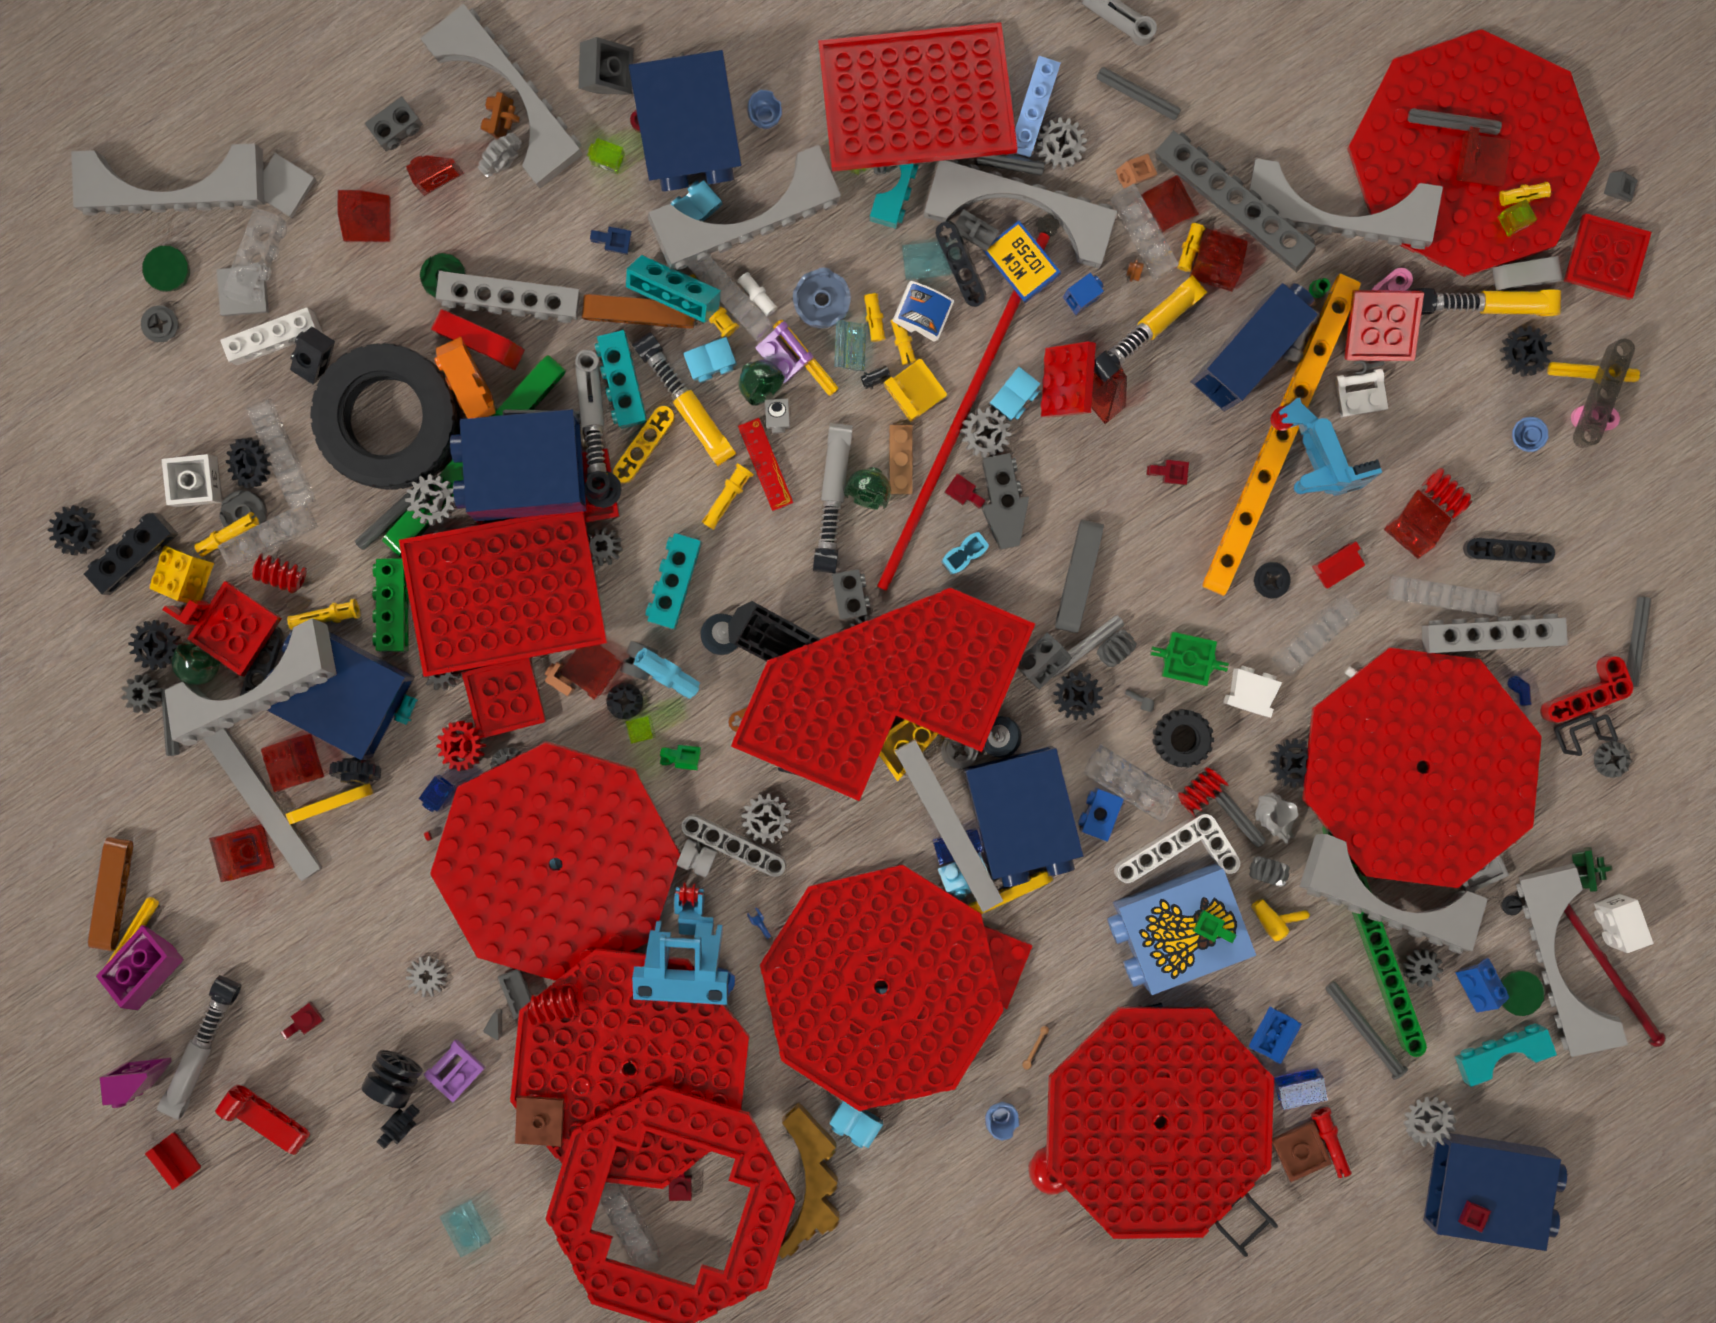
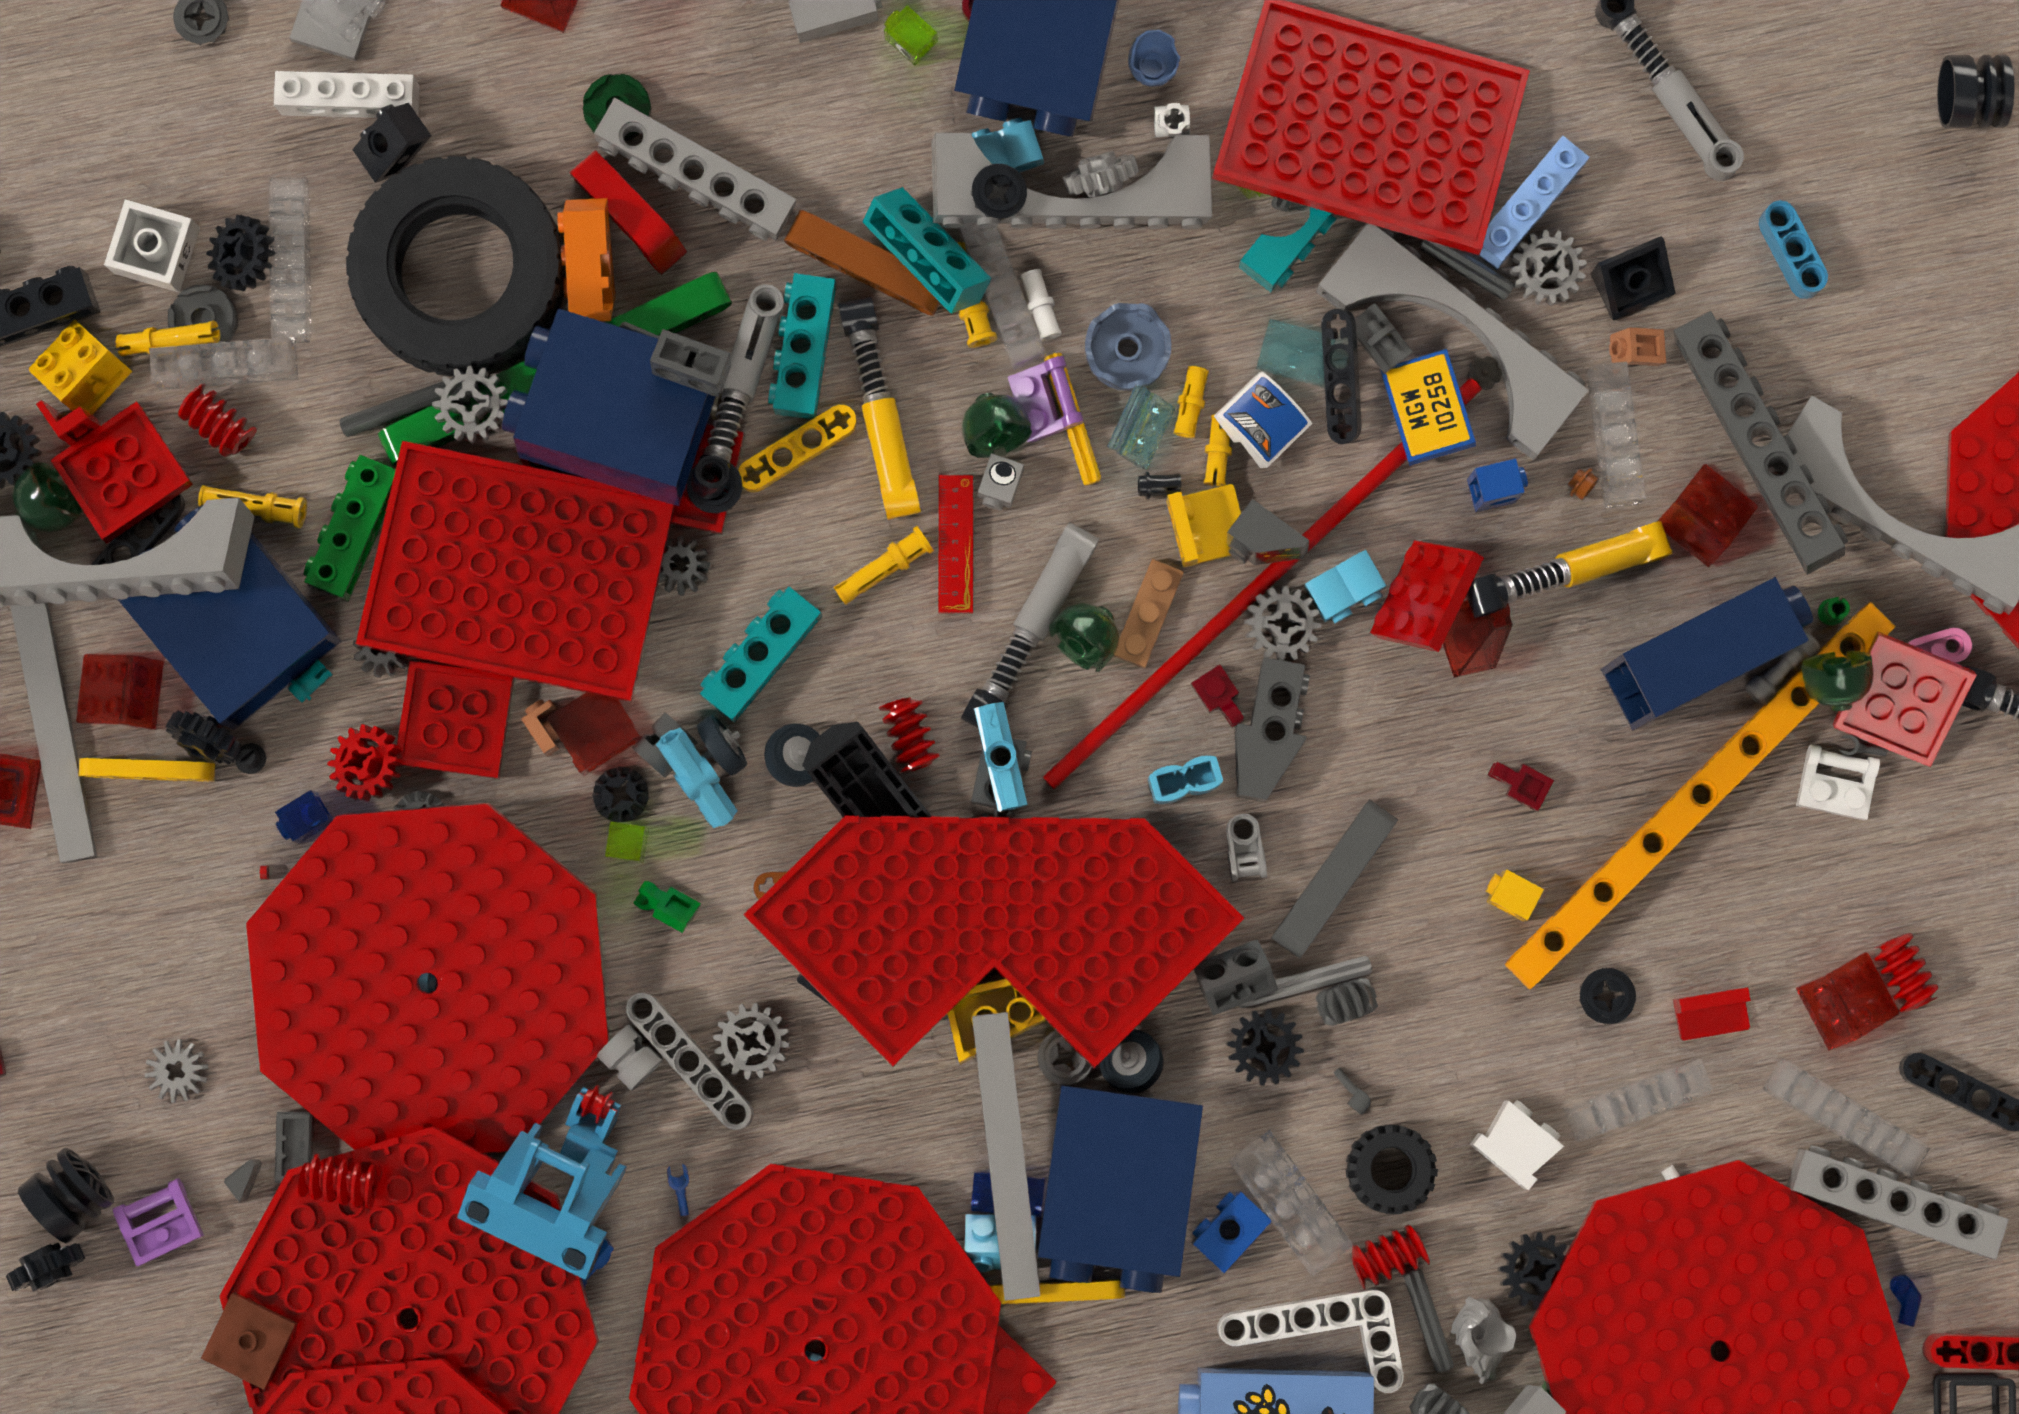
camera: 20 degrees right, 5 degrees down
(390, 770) = (251, 758): none -> black piece
(556, 421) = (690, 363): none -> dark grey brick
(615, 240) = (874, 153): dark blue plate -> none
(673, 646) = (722, 745): none -> black wheel
(700, 223) = (1001, 176): none -> black gear
(710, 359) = (938, 368): medium azure brick -> none
(761, 196) = (1101, 174): none -> light grey gear
(785, 593) = (910, 734): none -> red piece
(791, 144) = (1171, 120): none -> white piece
(837, 573) = (995, 734): none -> medium azure piece
(954, 384) = (1264, 538): none -> dark grey slope
(1018, 581) = (1245, 850): none -> light grey piece
(1117, 128) = (1634, 278): none -> black slope
(1138, 93) = (1683, 242): dark grey axle -> none
(1170, 204) = (1667, 412): clear red slope -> none
(1189, 658) = (1445, 1059): green plate -> none
(1191, 247) = (1674, 482): yellow pin -> none
(1191, 542) = (1513, 894): none -> yellow brick
(1206, 59) = (1793, 232): none -> dark azure beam
(1324, 452) = (1748, 871): dark azure container -> none
(1340, 330) = (1838, 679): none -> clear green cylinder

